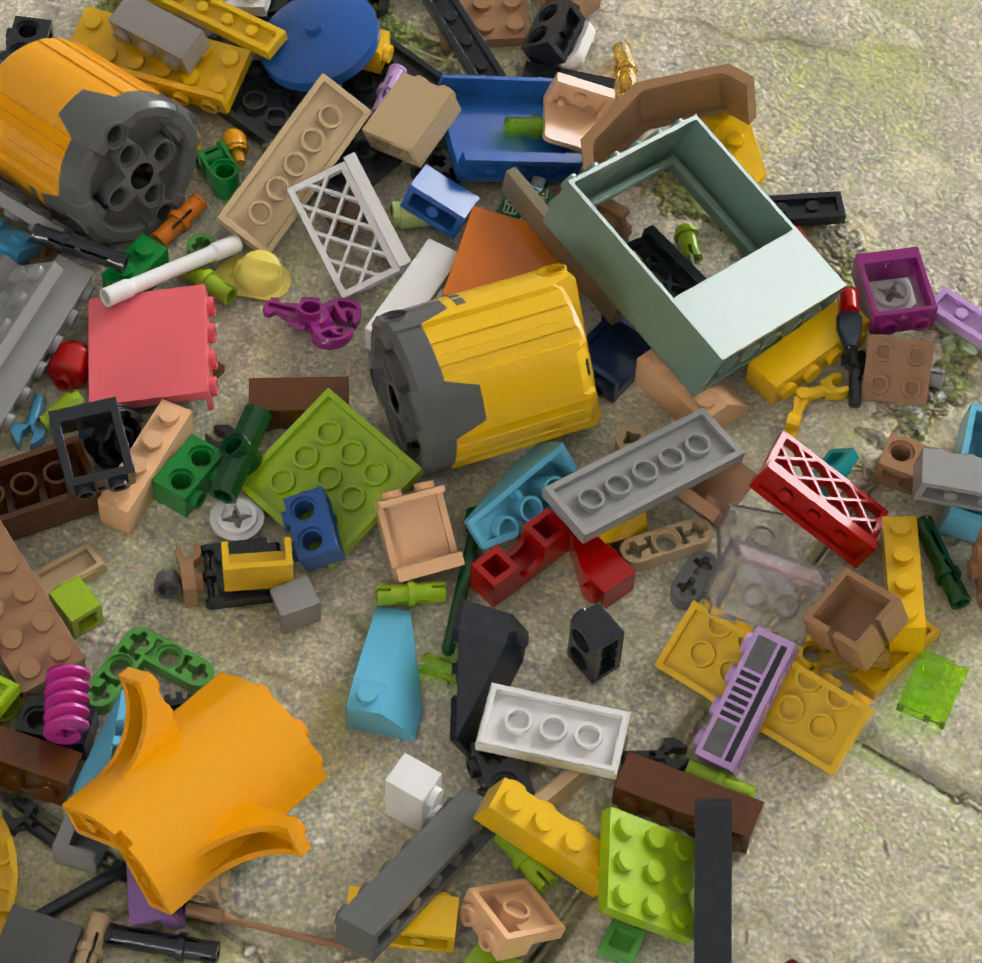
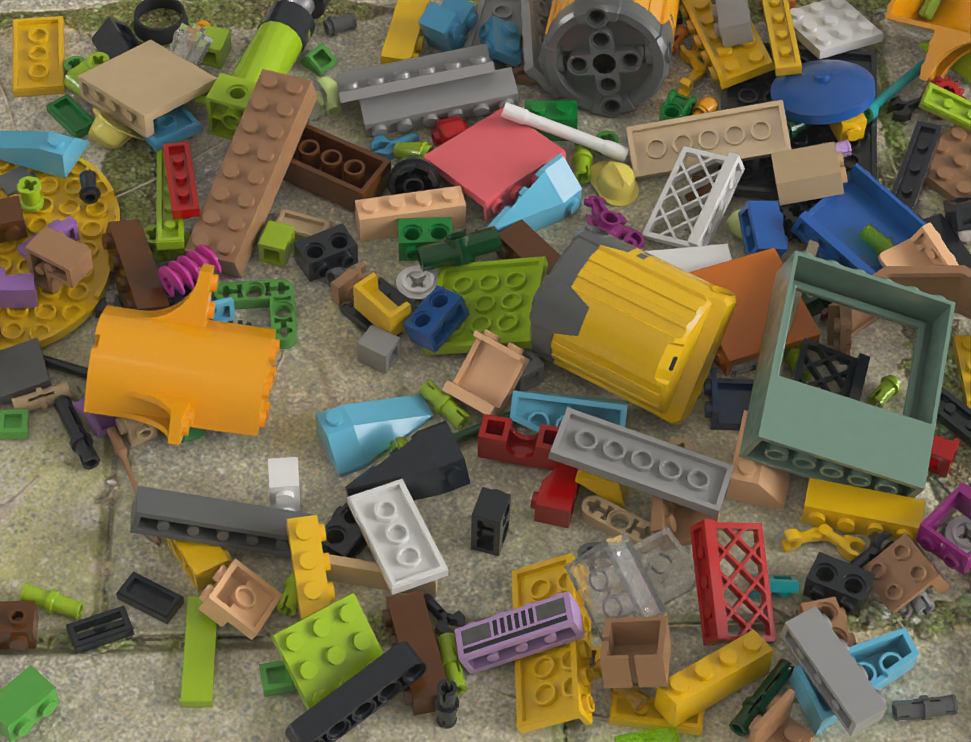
camera: 55 degrees right, 5 degrees down
(66, 243) = (521, 64): black pin -> none
(84, 417) = (378, 137): black window -> none
(124, 571) = (325, 251): none -> black brick
(192, 208) = (614, 118): orange pin -> none
(240, 346) = (546, 201): none -> medium azure wedge
(775, 813) = (446, 703): none -> black pin
(849, 320) = (908, 513): black piece -> none
(869, 419) = (840, 579): none -> black brick

